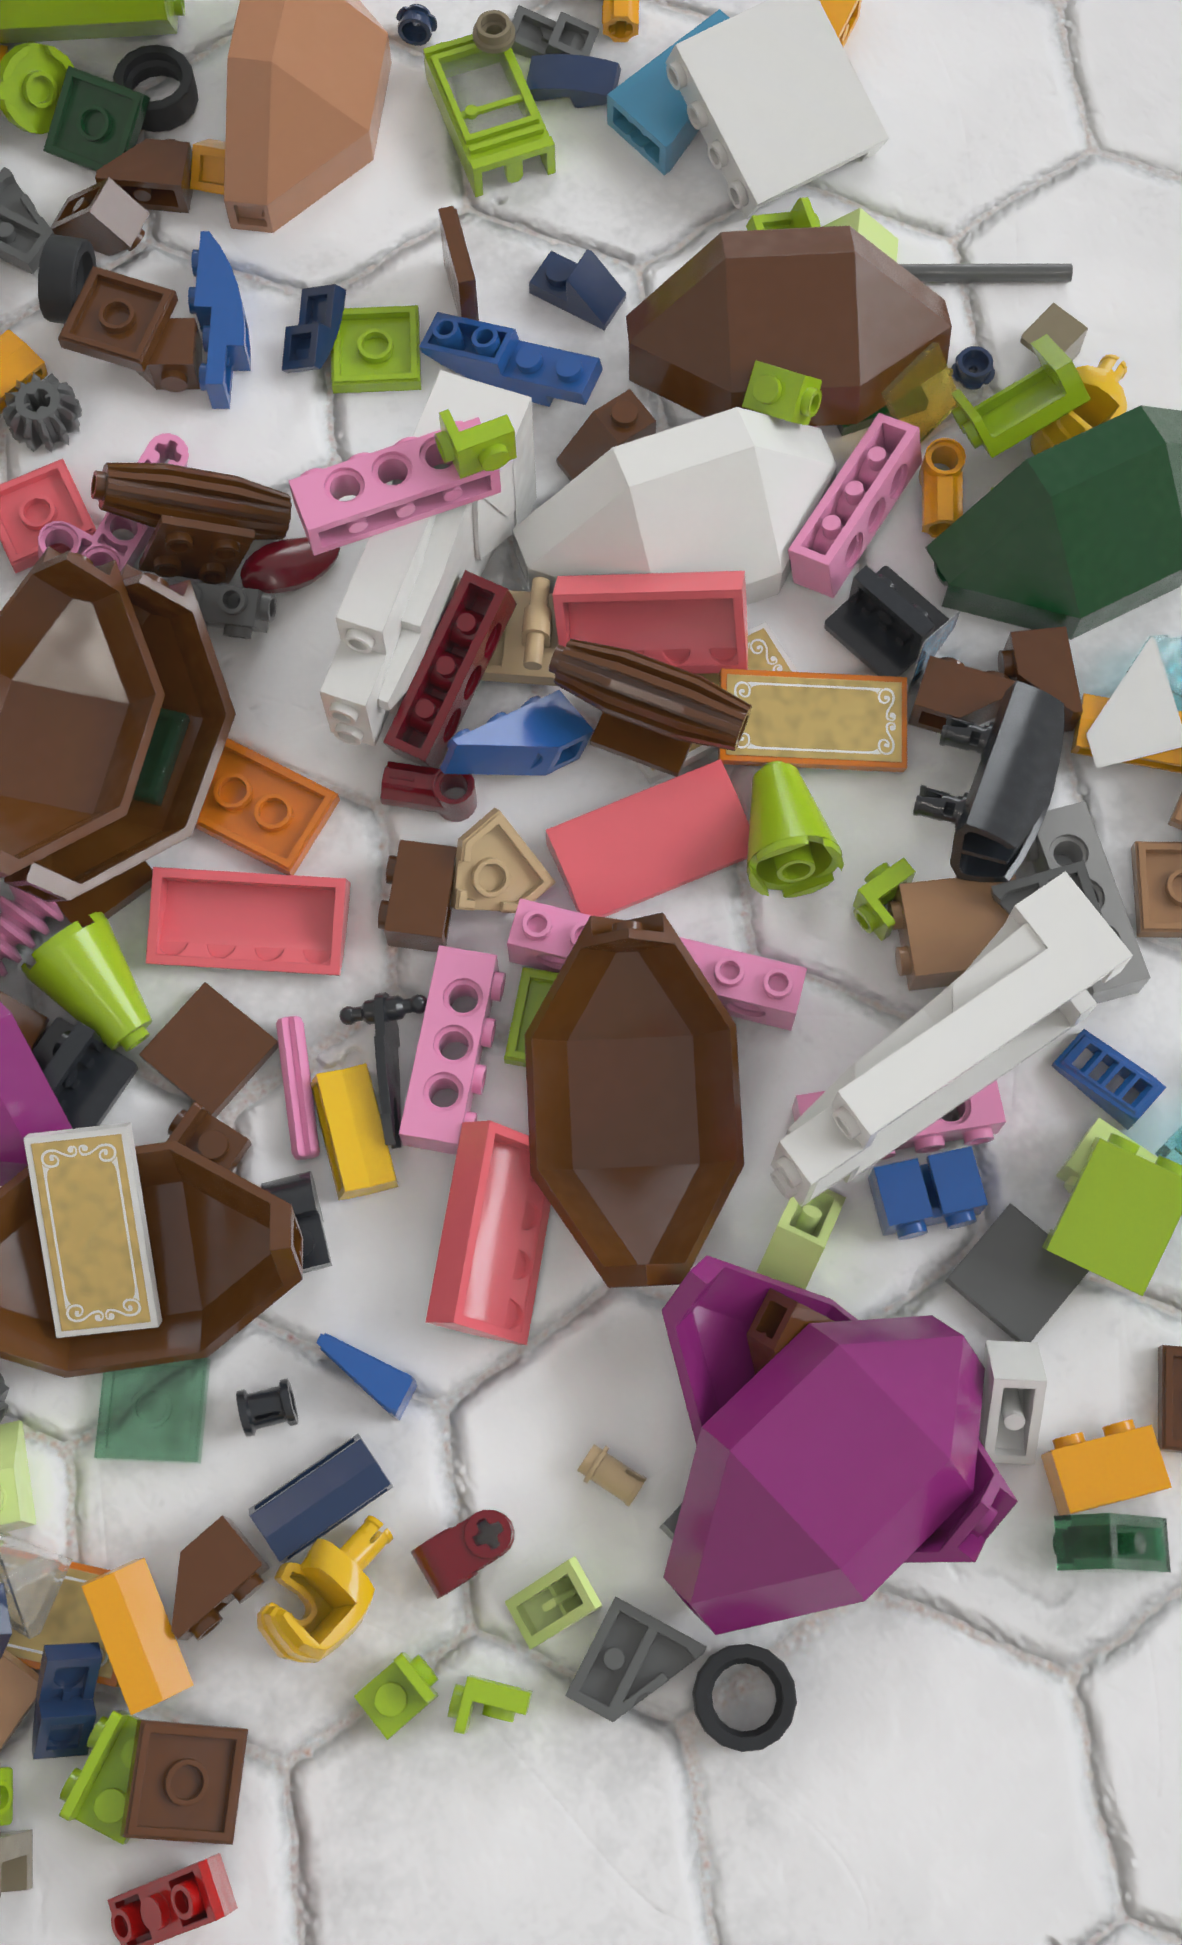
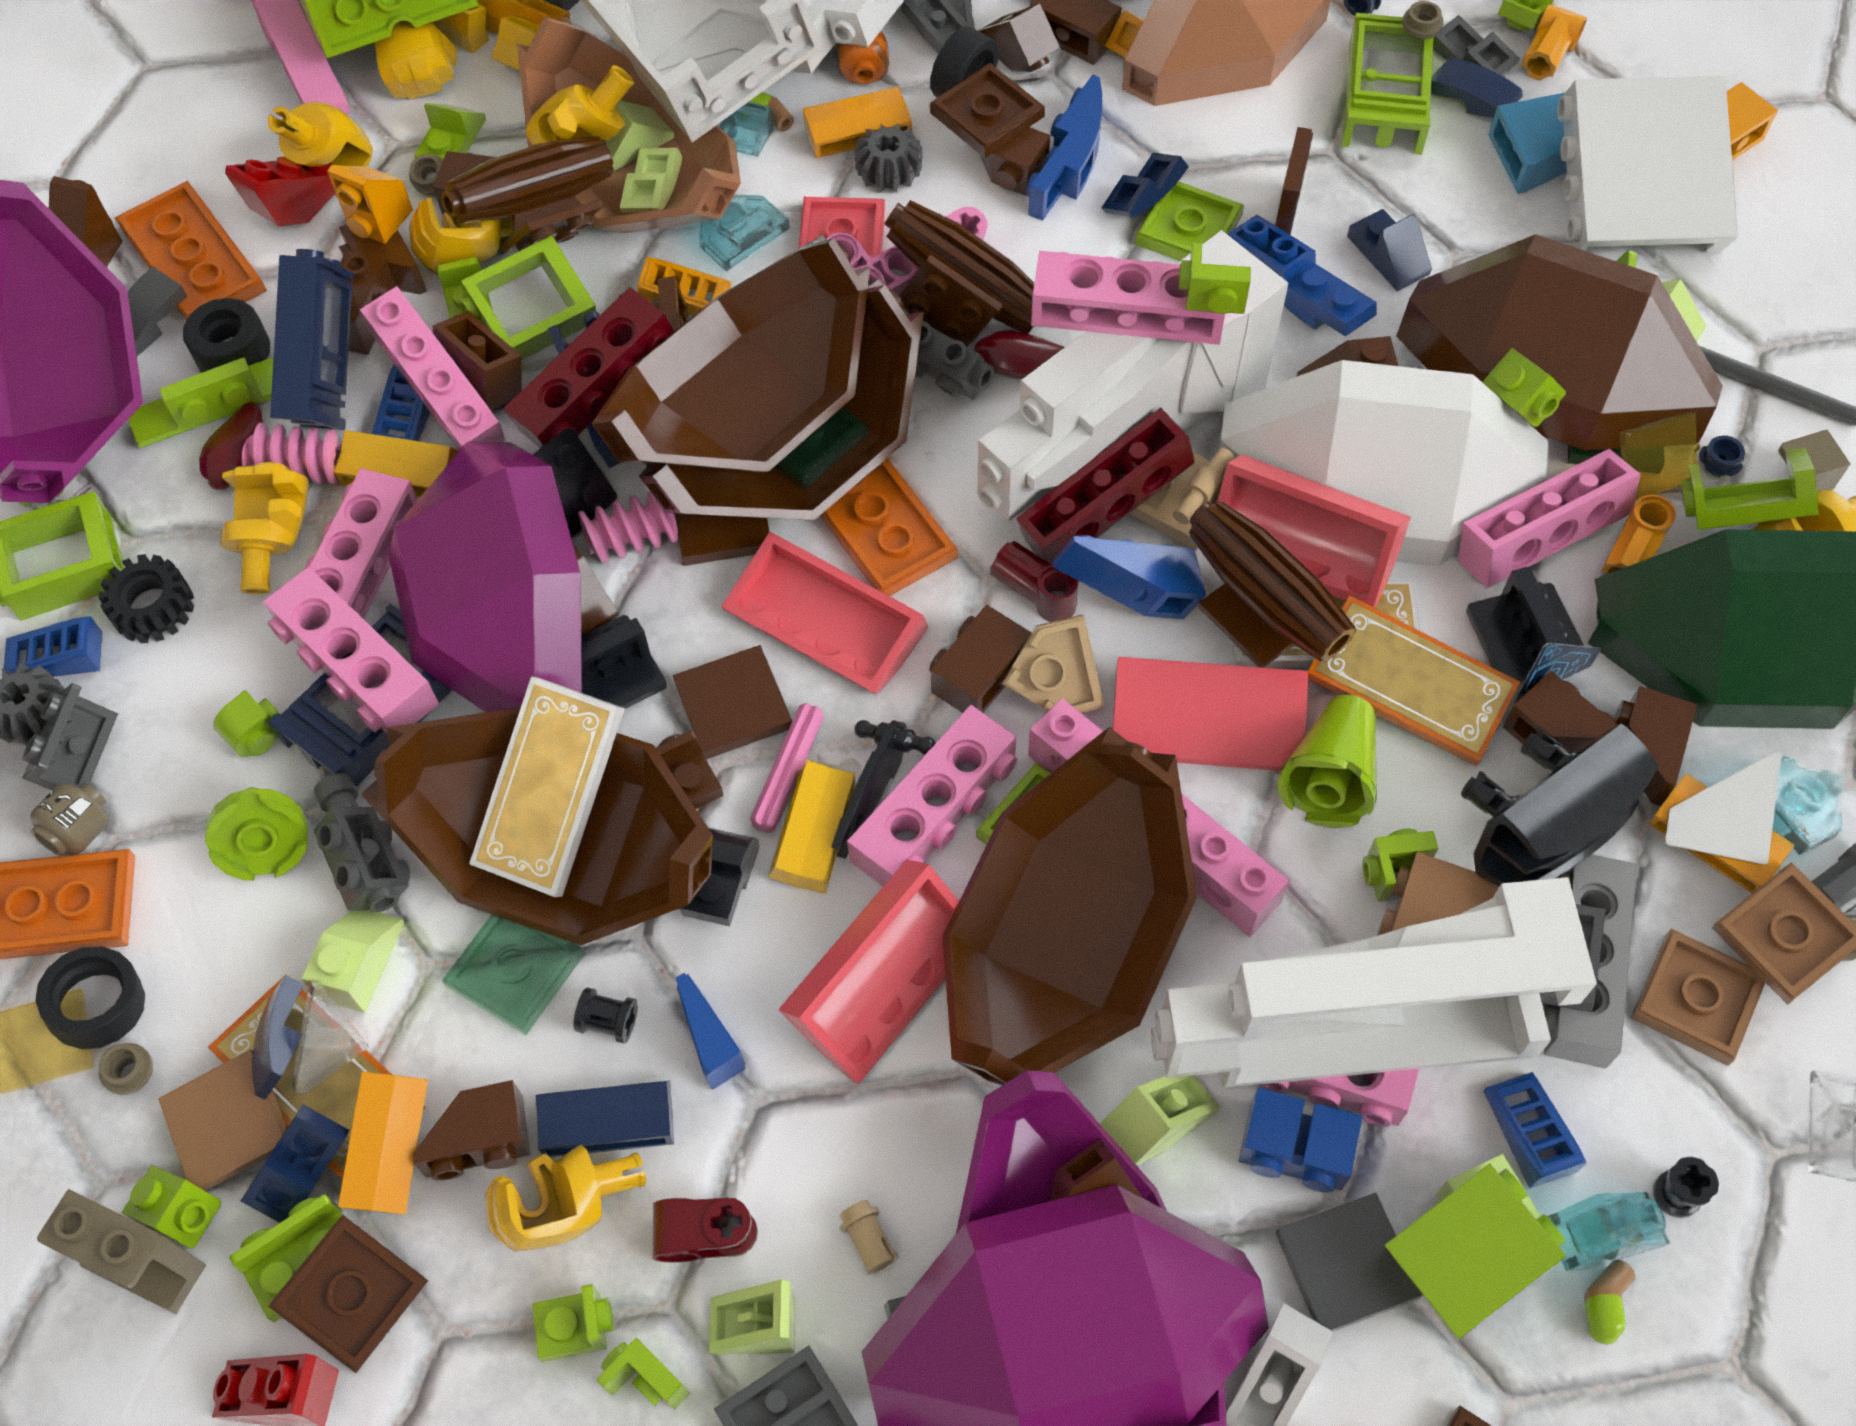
camera: 30 degrees right, 10 degrees down
(92, 982) = (667, 595): lime cone -> none

